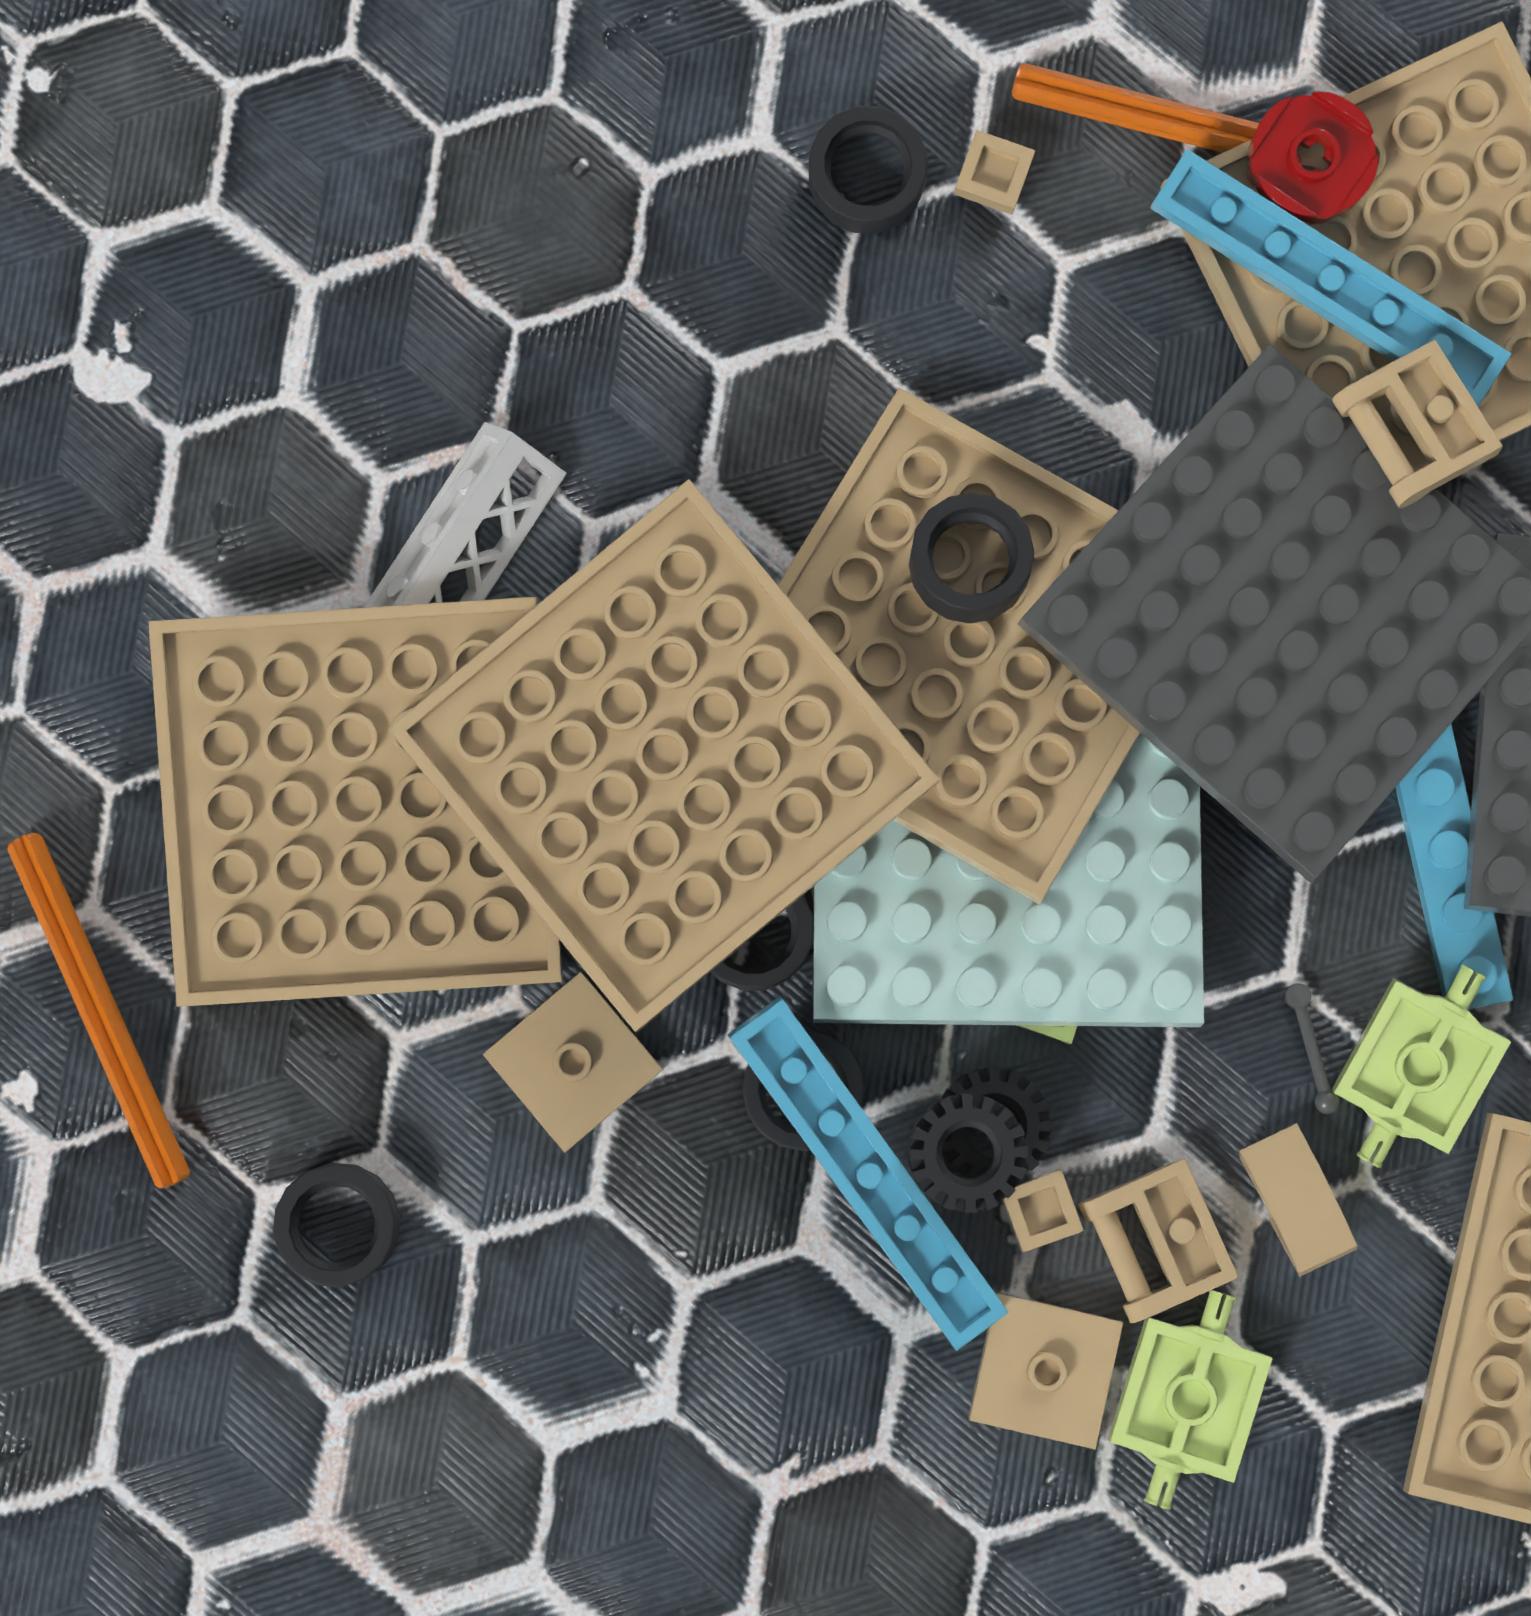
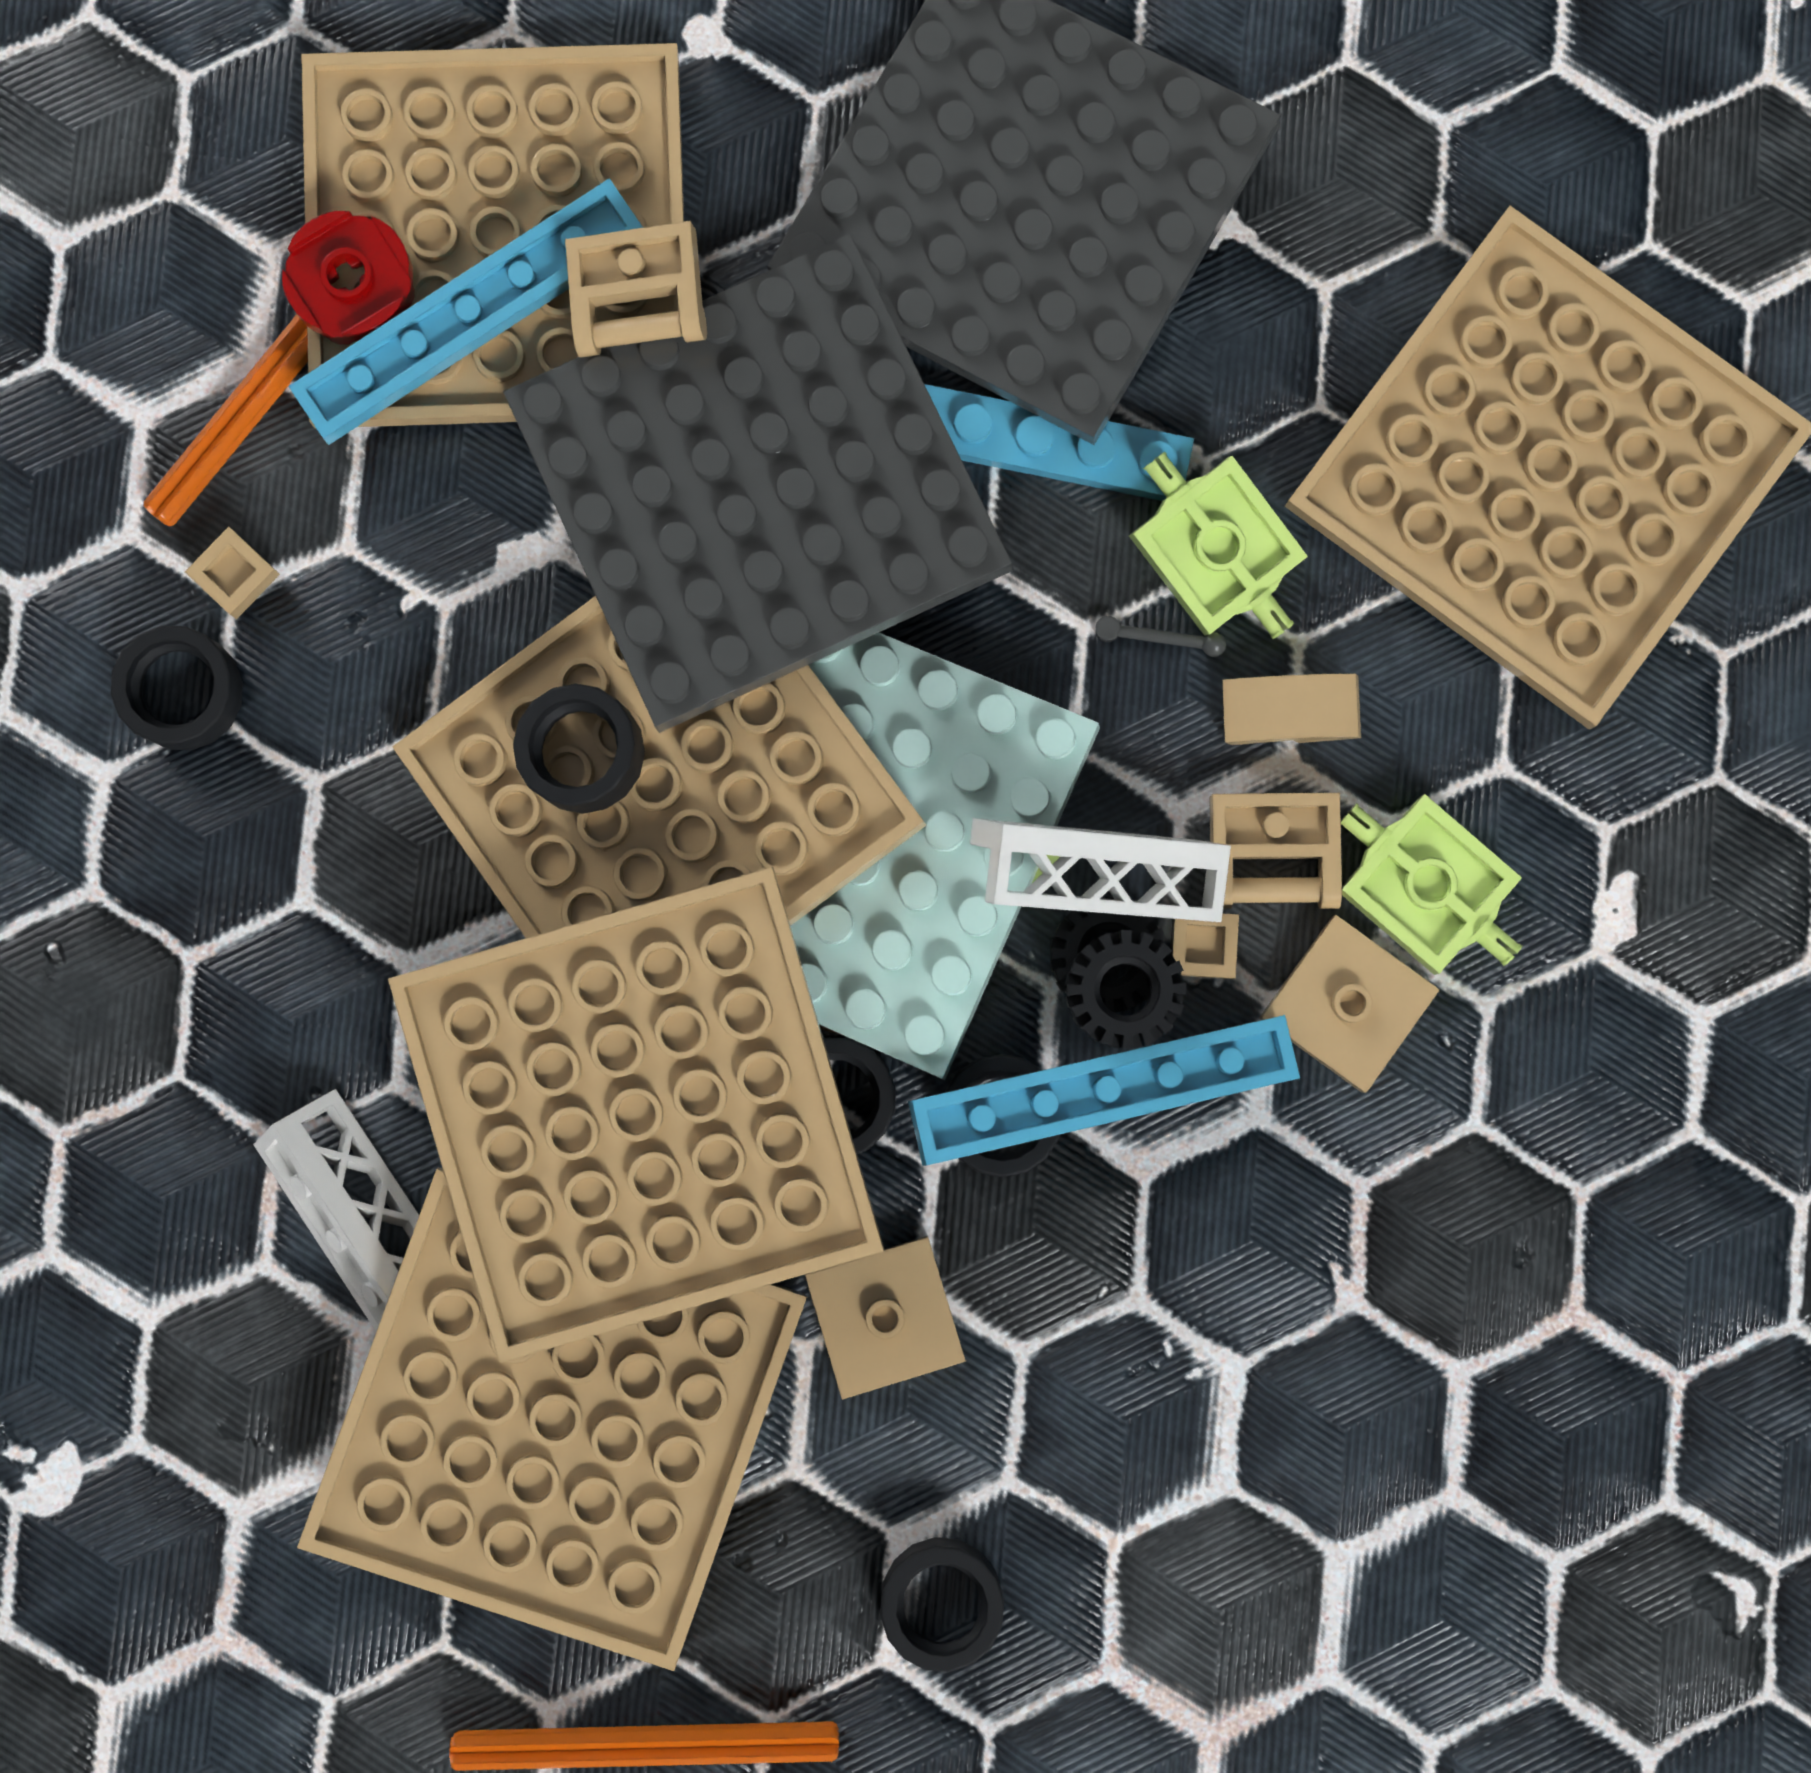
camera: 65 degrees left, 0 degrees up
(1087, 1068) = (1097, 846): none -> white fence

